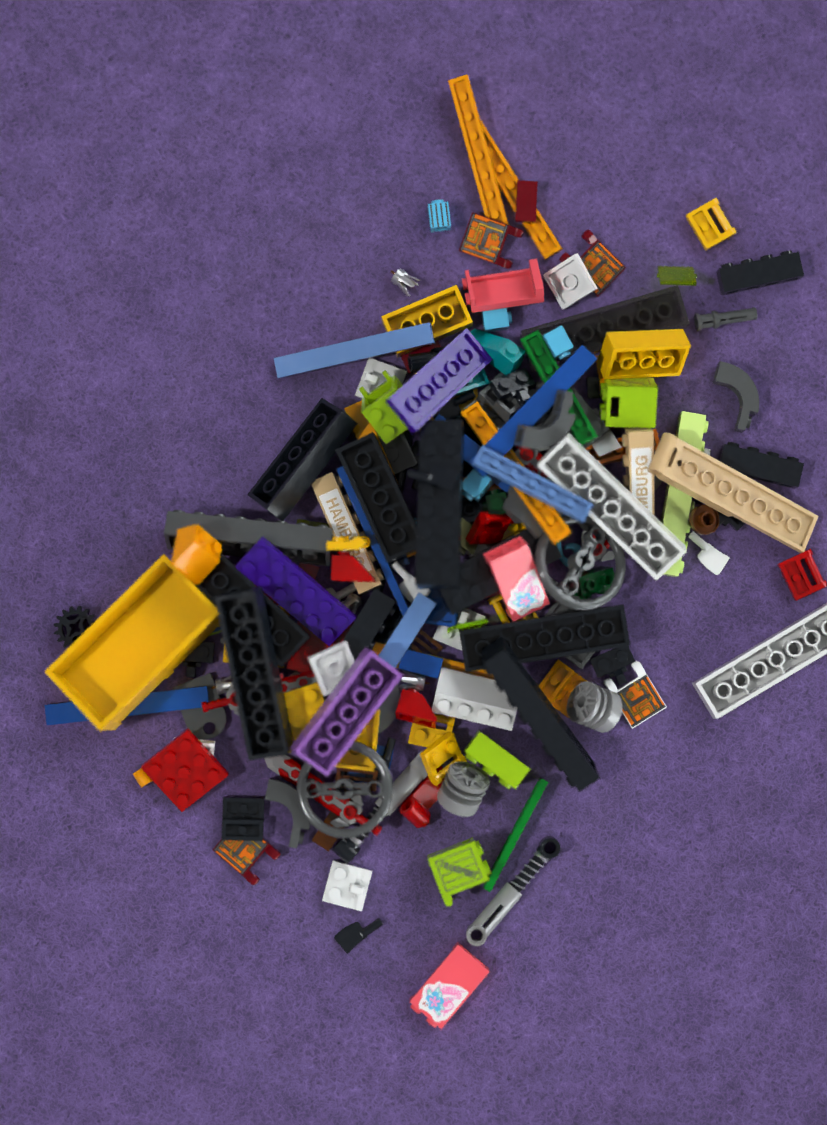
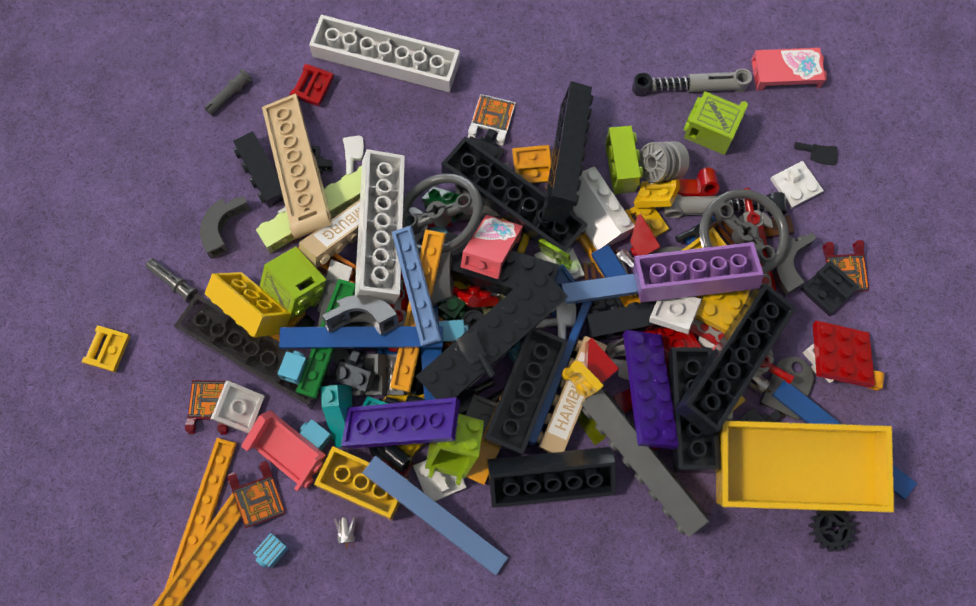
camera: 130 degrees left, 15 degrees down
(195, 553) = (700, 481): light orange slope -> none
(515, 833) = (650, 112): green tile -> none
(526, 201) = (201, 495): dark red tile -> none
(594, 707) = (527, 128): light grey wheel -> none
(676, 275) = (167, 337): clear neon green piece -> none
(704, 520) = (332, 168): reddish brown plate -> none
(759, 273) = (115, 283): black brick -> none

